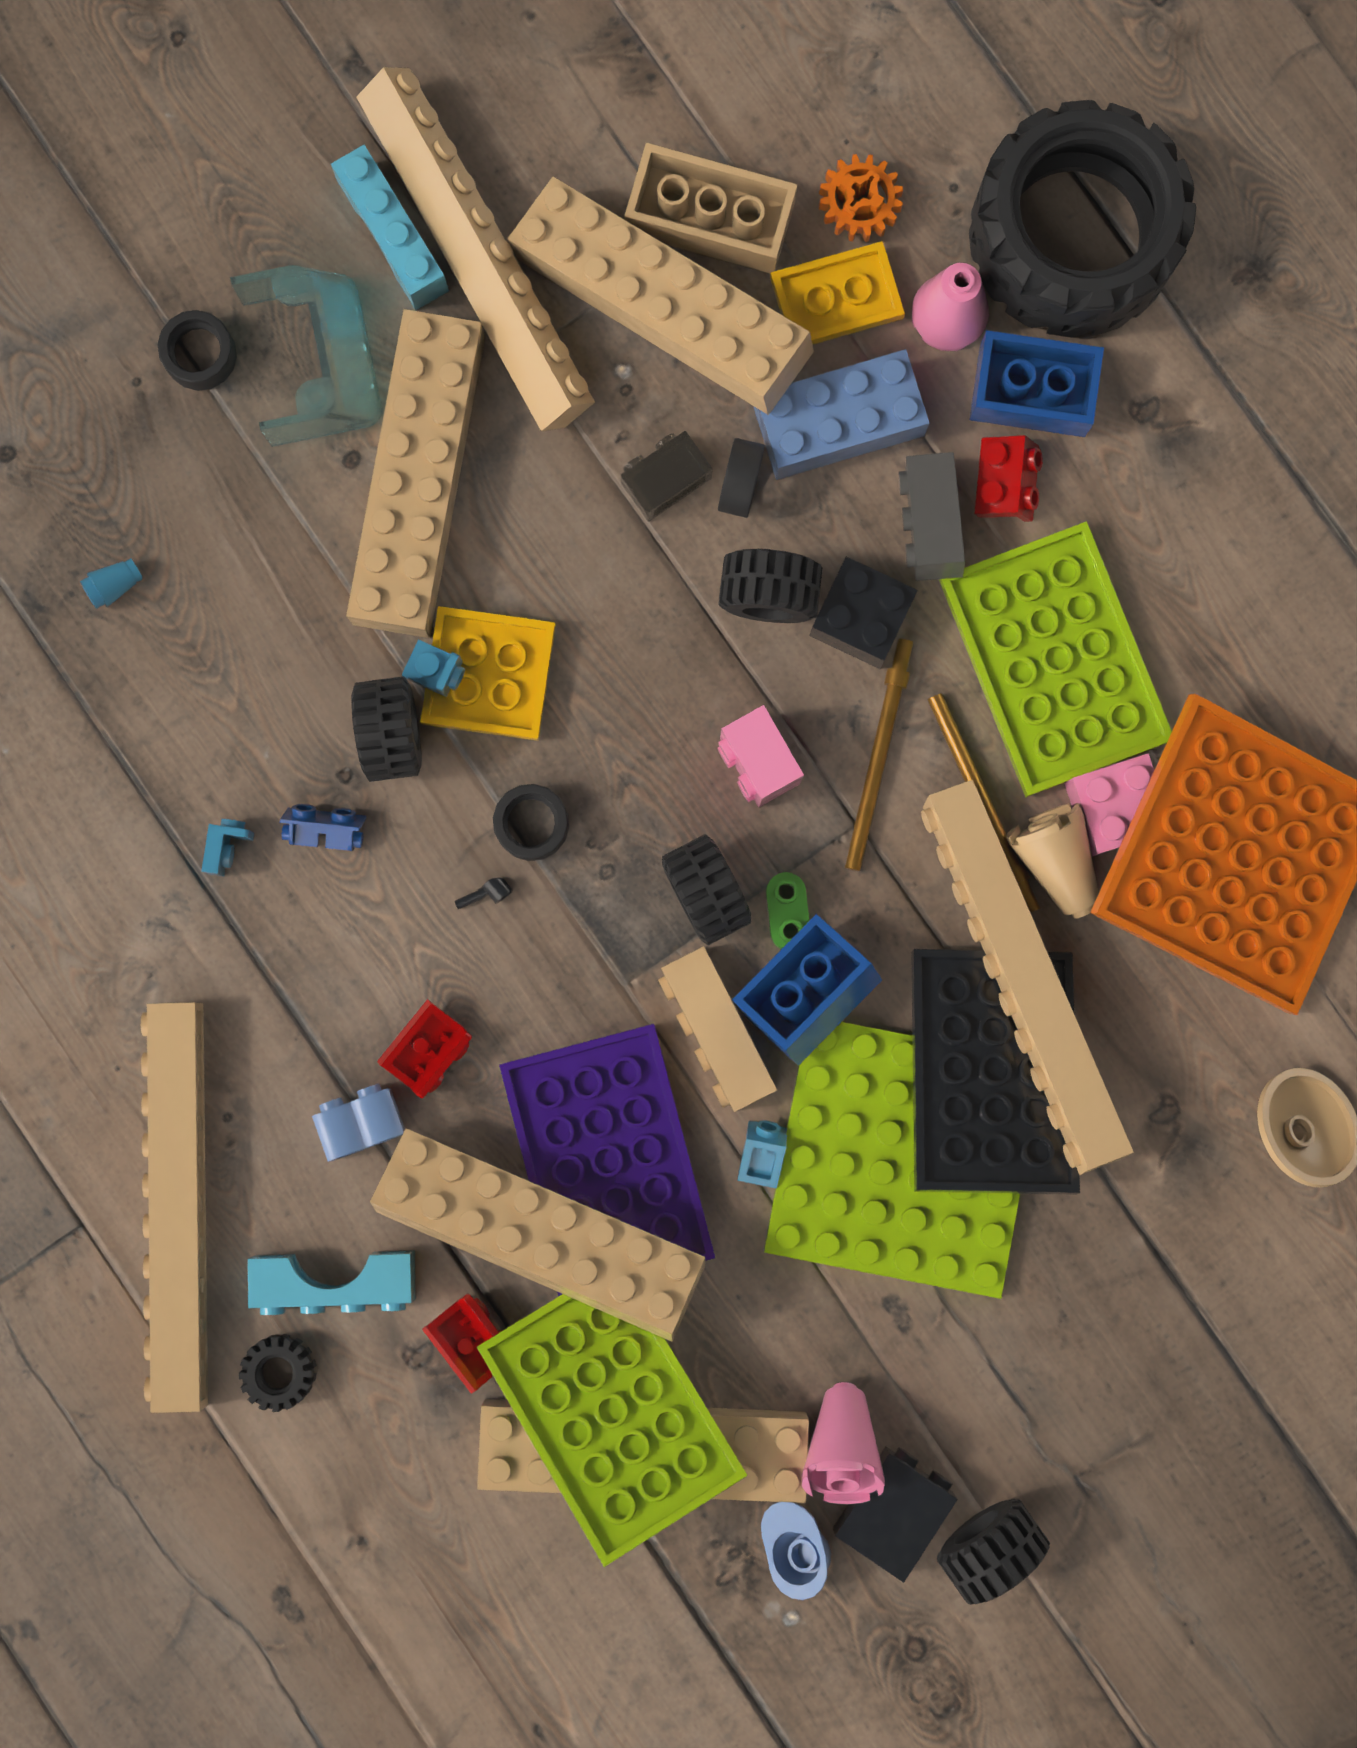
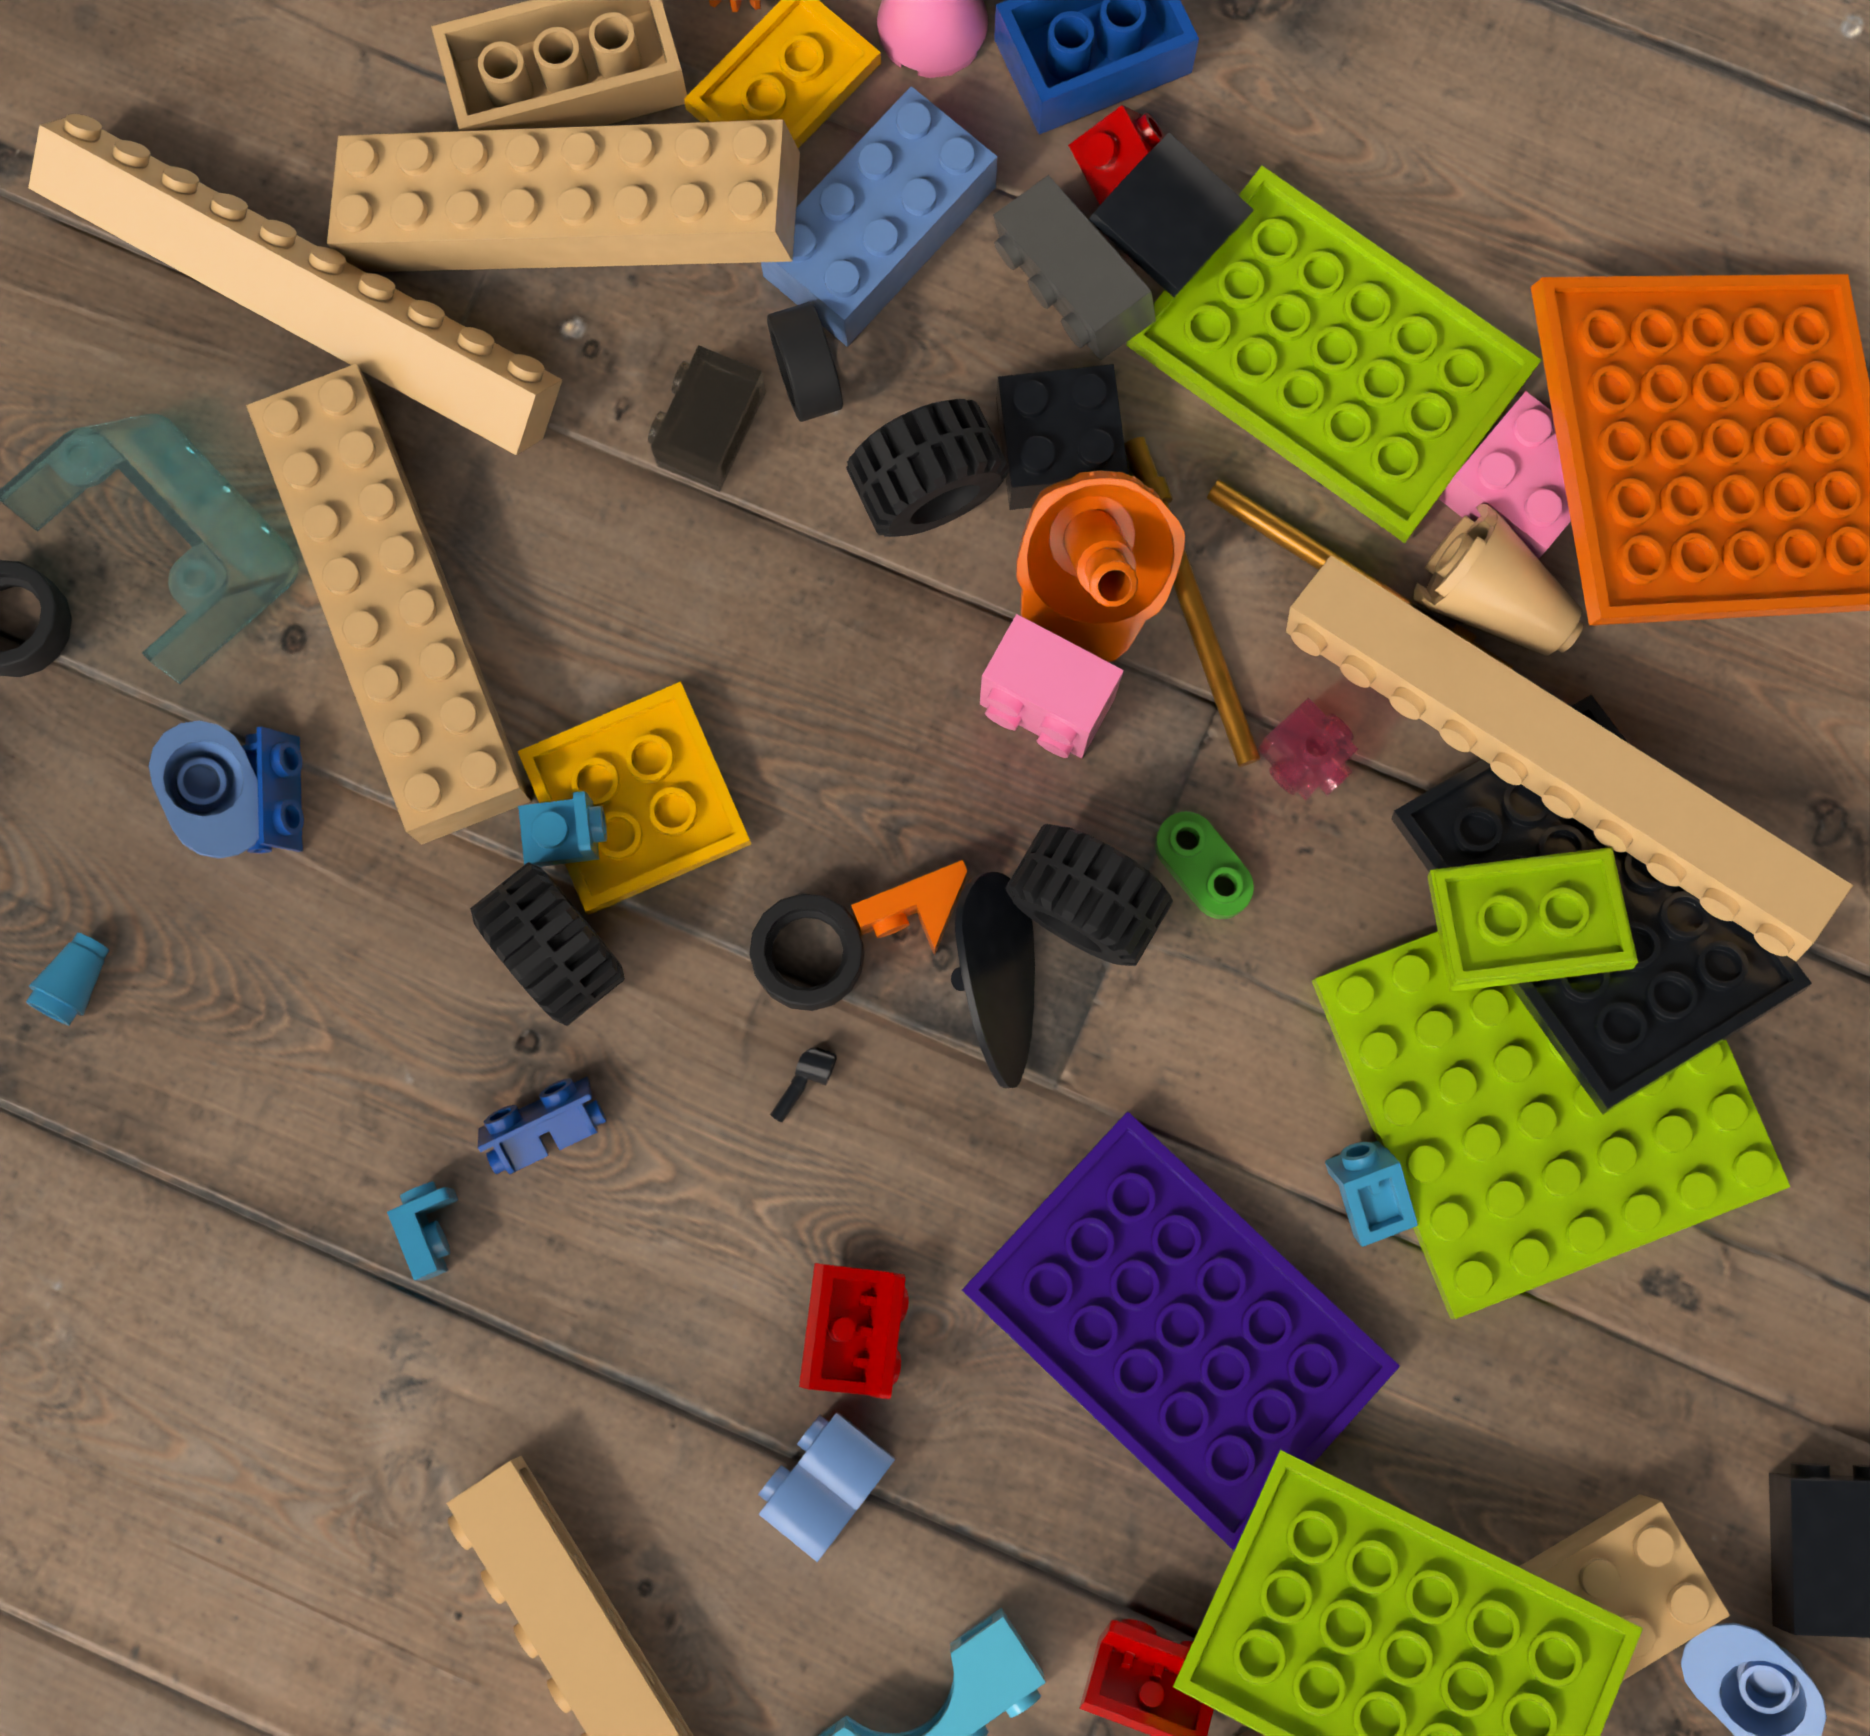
camera: 30 degrees left, 5 degrees down
(250, 522) = (206, 789): none -> medium blue piece
(296, 529) = (278, 768): none -> blue hinge
(390, 227) = (198, 332): medium azure arch -> none
(539, 1234) = (1160, 1480): tan brick -> none
(619, 834) = (929, 896): none -> orange slope
(628, 901) = (996, 973): none -> black shield
(718, 1029) = (1215, 1069): tan brick -> none
(807, 989) = (1297, 943): blue brick -> none
(833, 701) = (1098, 560): none -> orange piece
(843, 1449) = (1732, 1512): bright pink cone -> none
(894, 871) = (1304, 732): none -> clear pink brick
(947, 1058) = (1531, 919): none -> lime tile
(1009, 520) = (1171, 214): none -> black slope

